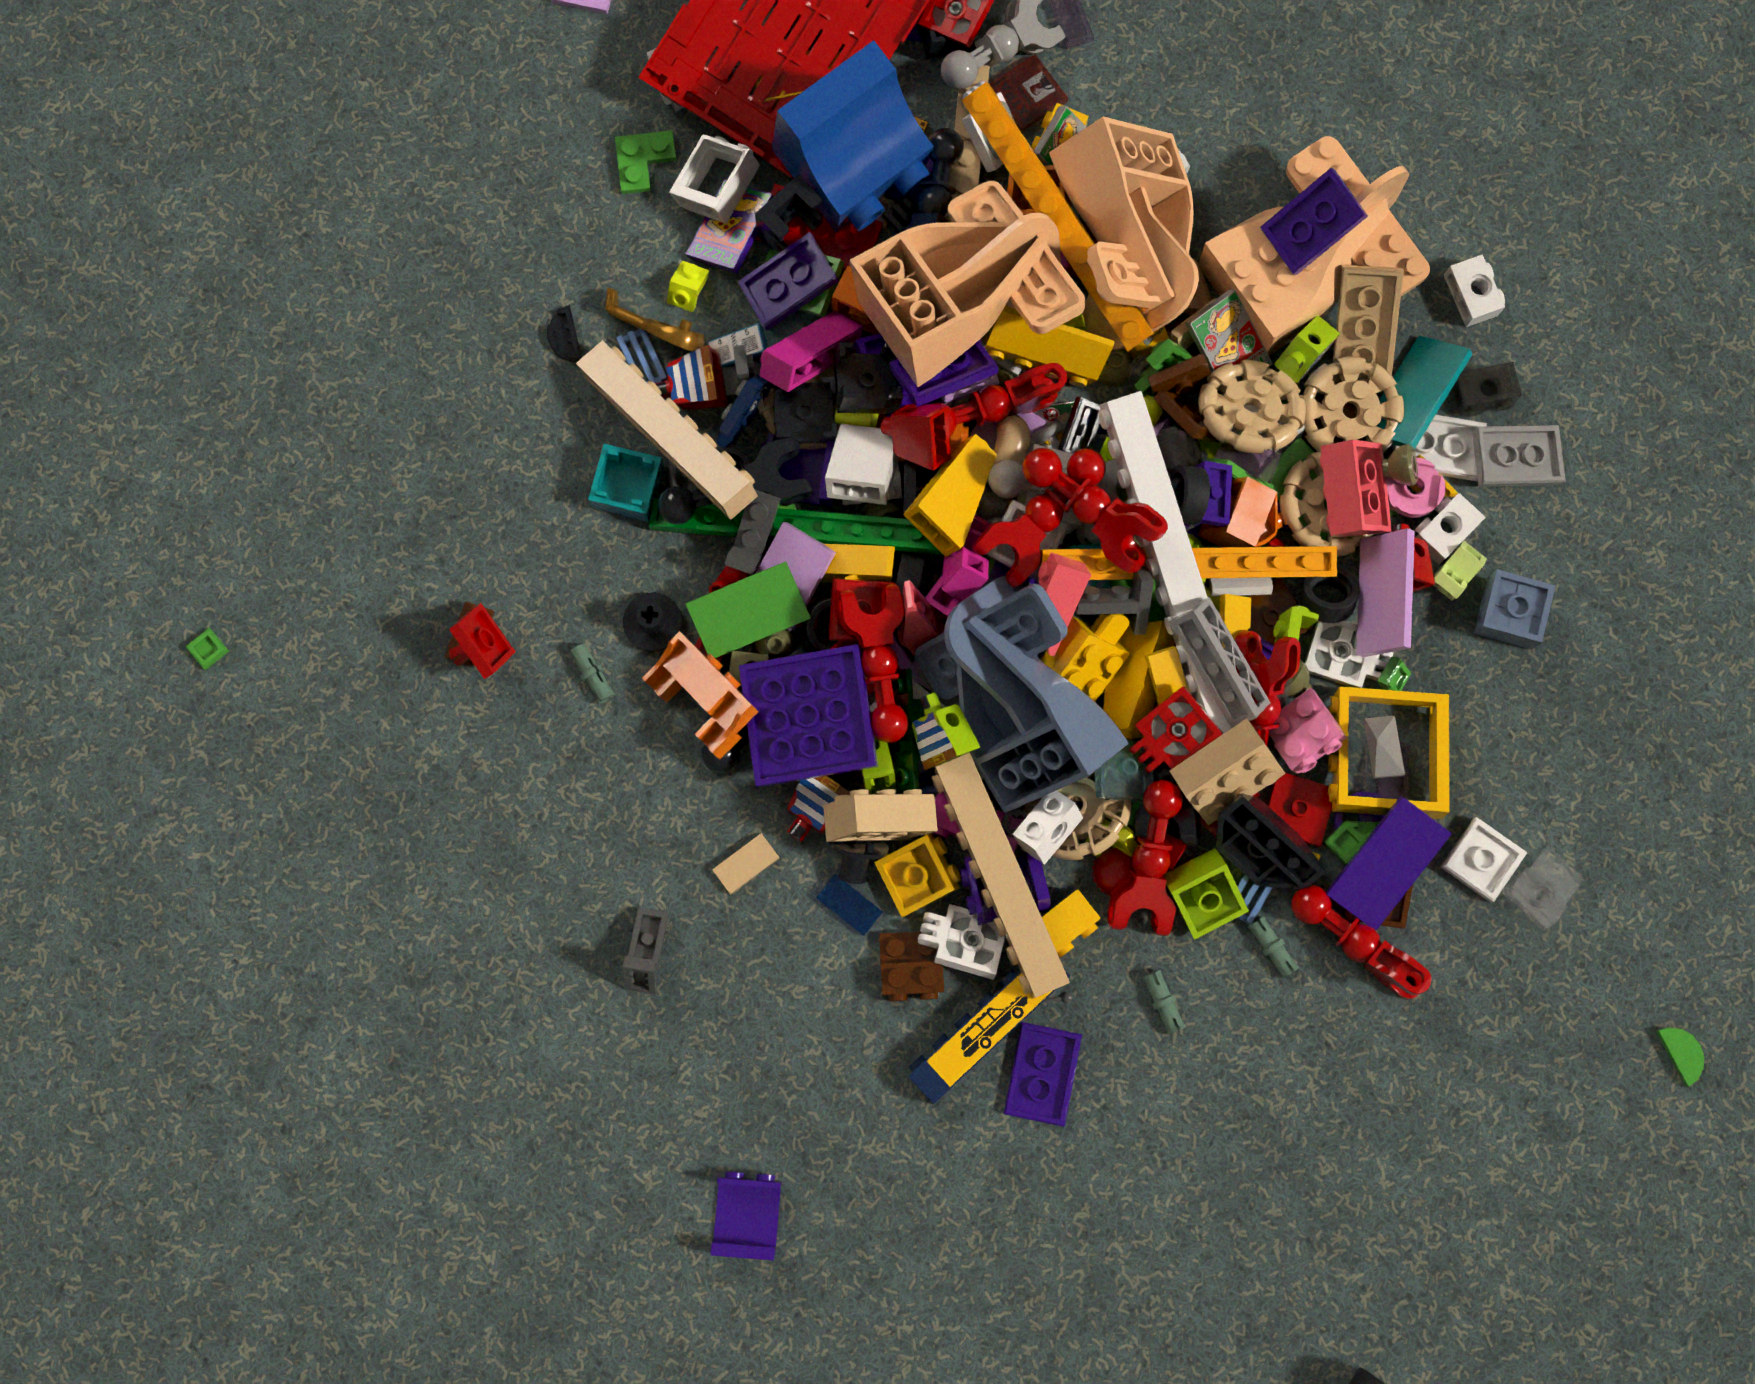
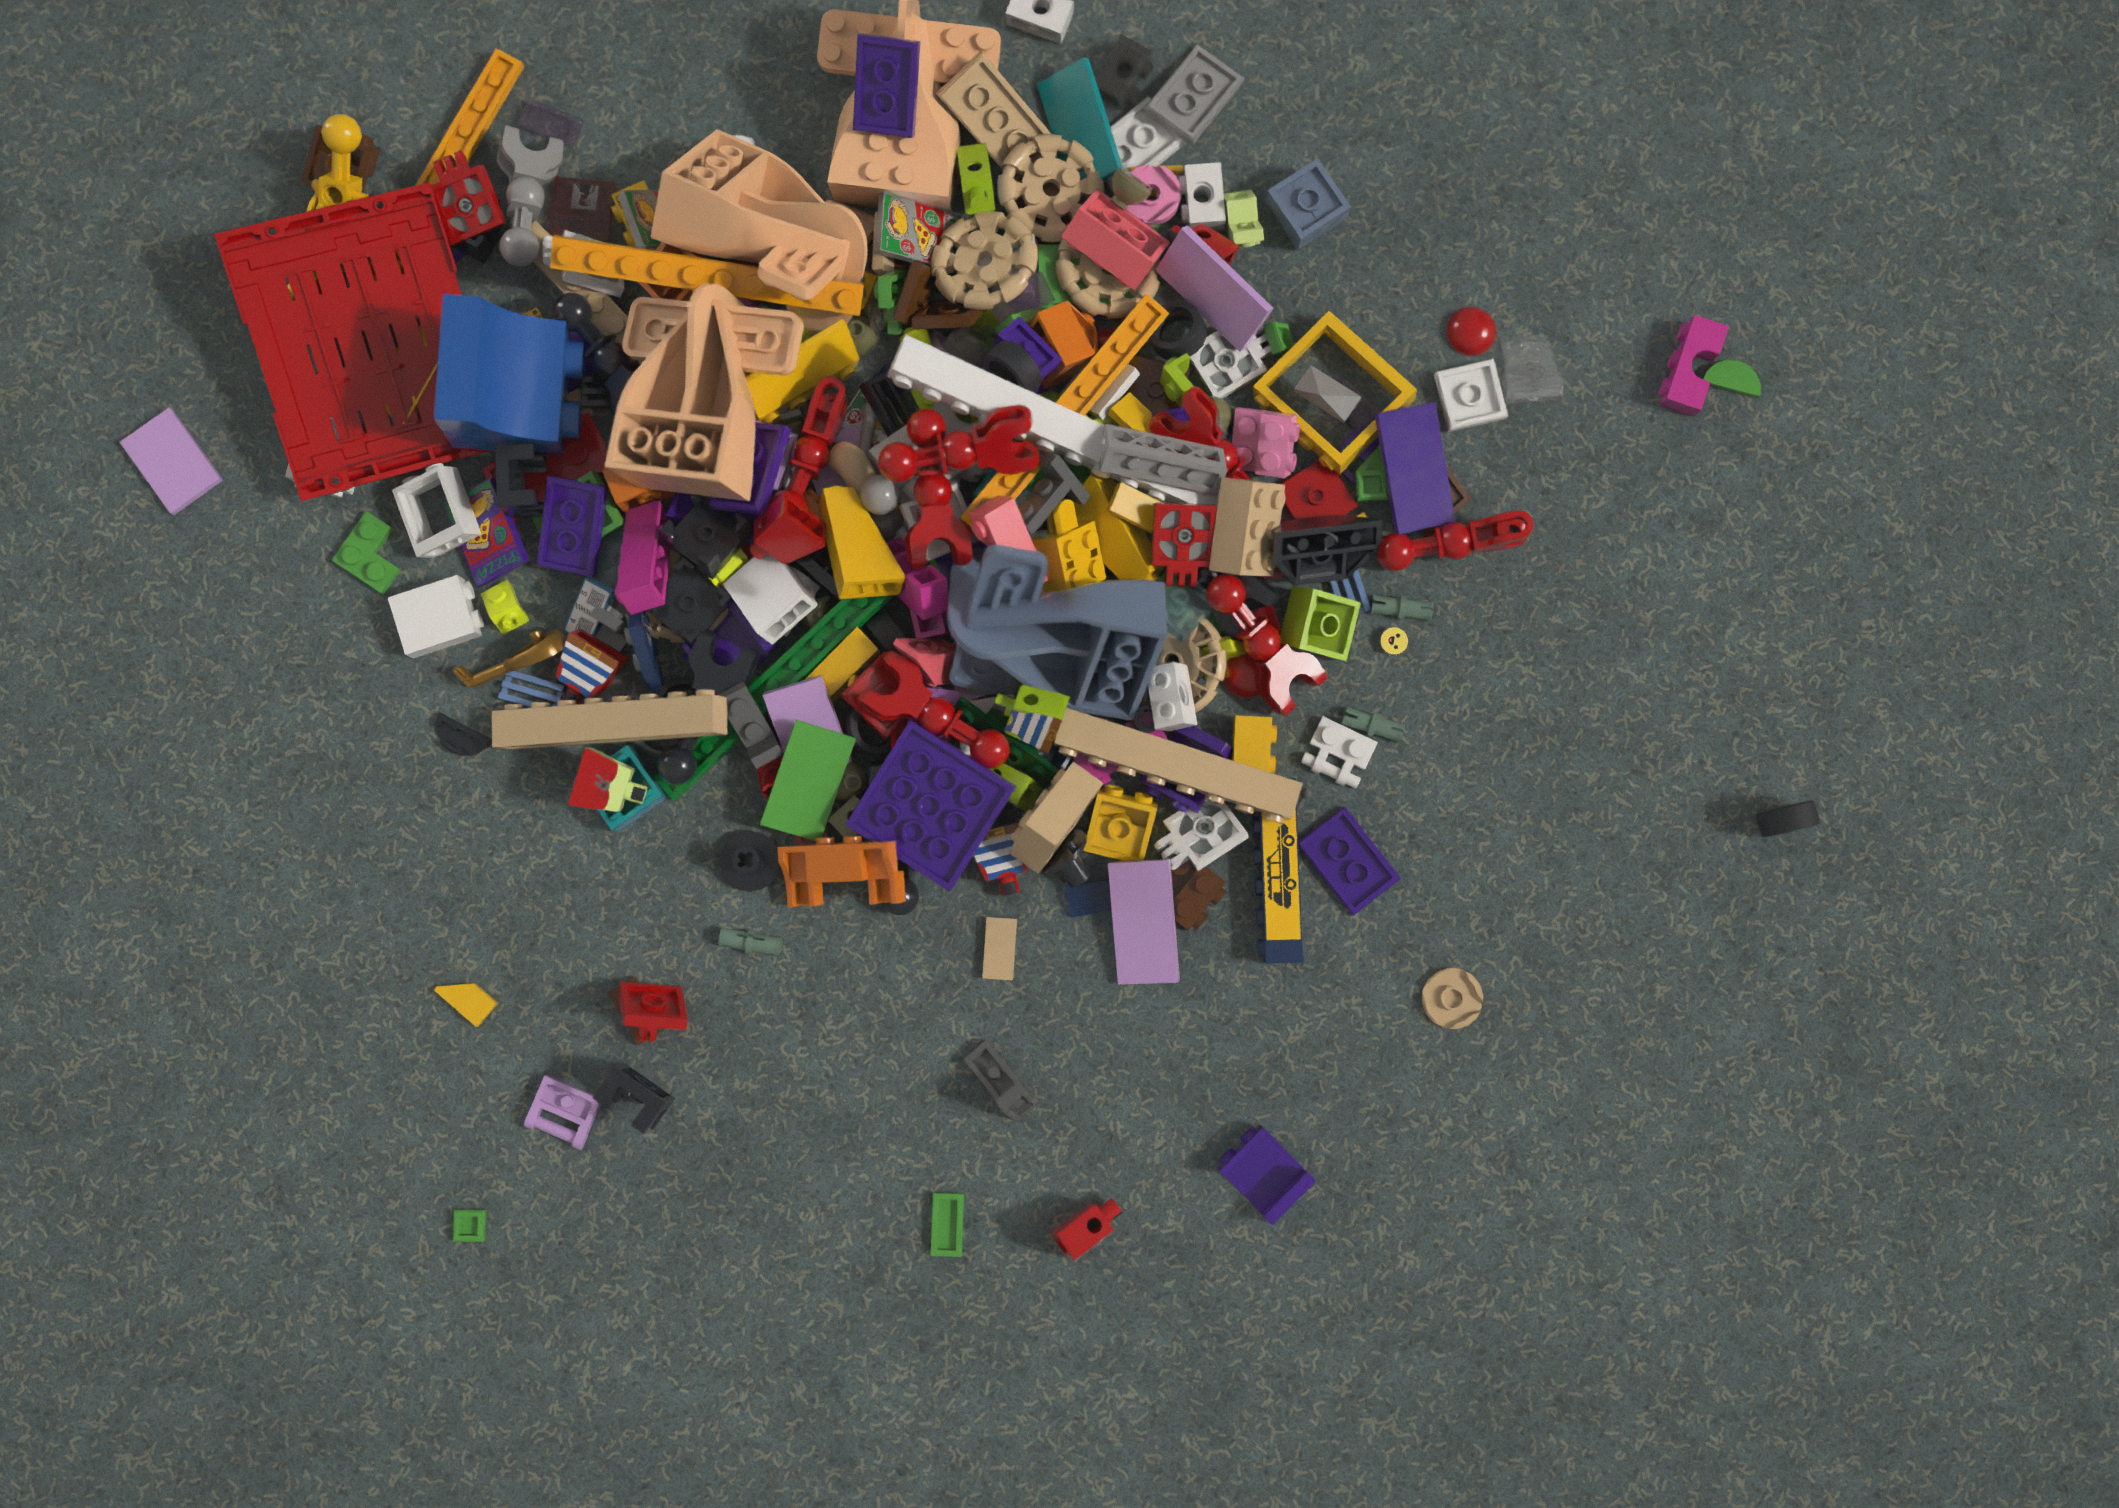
camera: 45 degrees left, 5 degrees up
(357, 640) = (566, 1102): none -> lavender plate
(374, 507) = (469, 1001): none -> yellow tile
(414, 700) = (641, 1090): none -> black panel
(502, 1004) = (947, 1224): none -> bright green tile
(573, 1109) = (1073, 1234): none -> red torso
(618, 463) = (604, 783): none -> torso
(637, 243) = (436, 616): none -> white brick
(859, 954) = (1143, 921): none -> lavender tile
(998, 1240) = (1440, 995): none -> tan tile
(1128, 991) = (1342, 743): none -> white plate
(1242, 963) = (1393, 641): none -> light yellow tile
(1533, 818) = (1471, 331): none -> red hat
(1639, 1021) = (1683, 389): none -> dark pink arch

